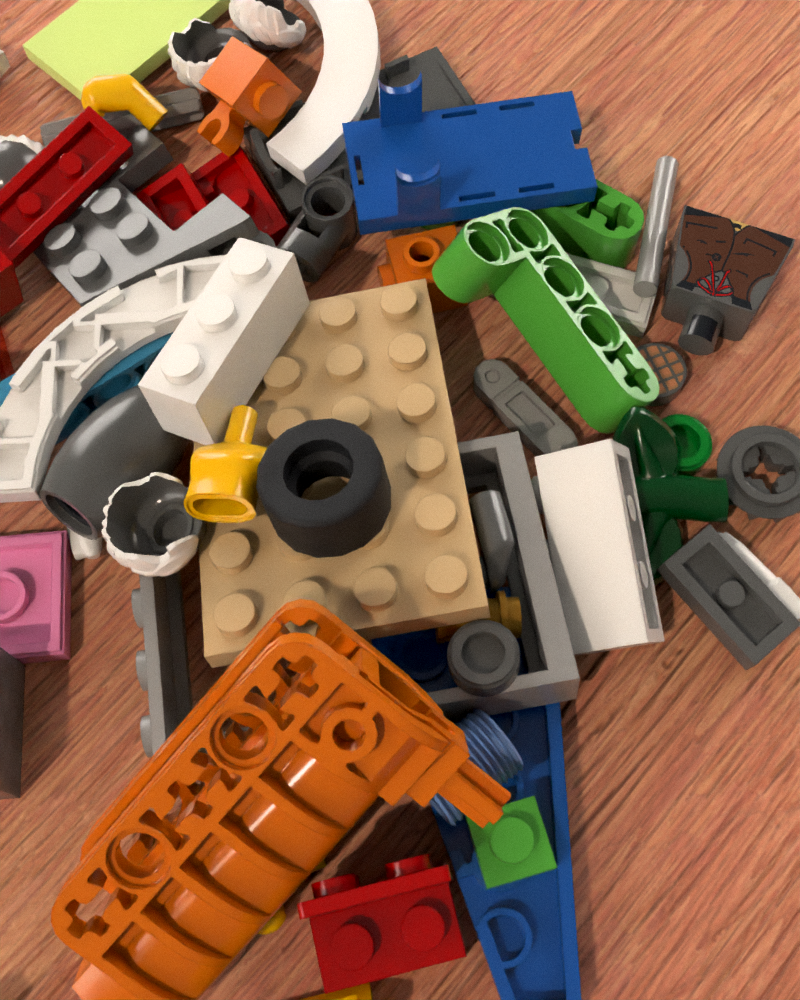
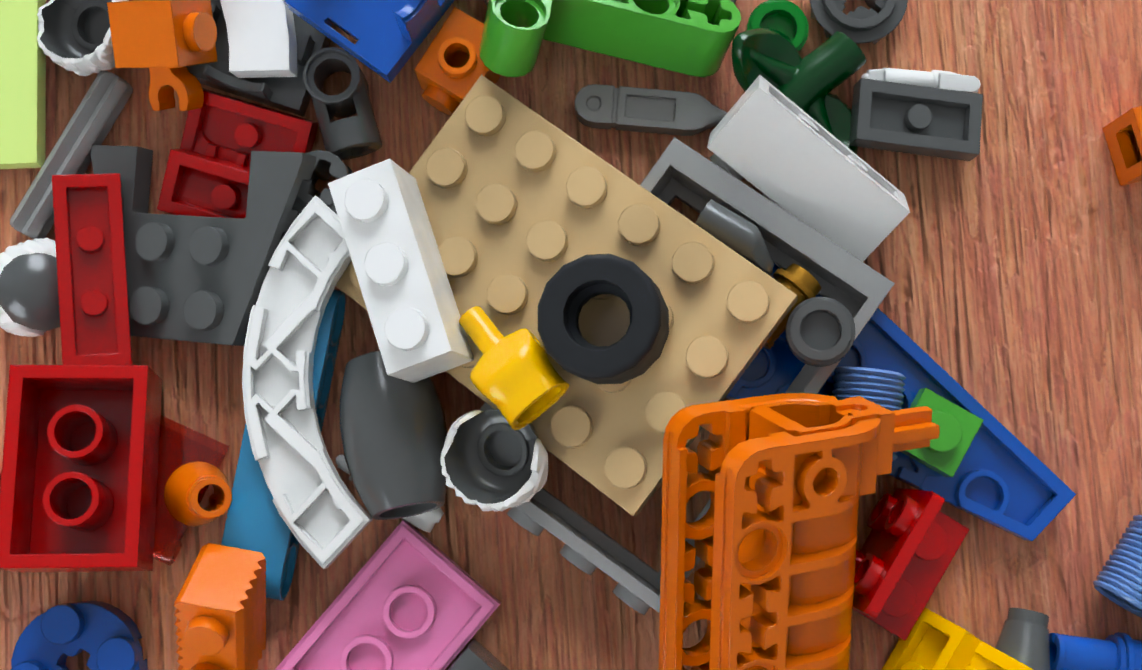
camera: 45 degrees left, 15 degrees up
(122, 93) = (58, 138): yellow arm -> none

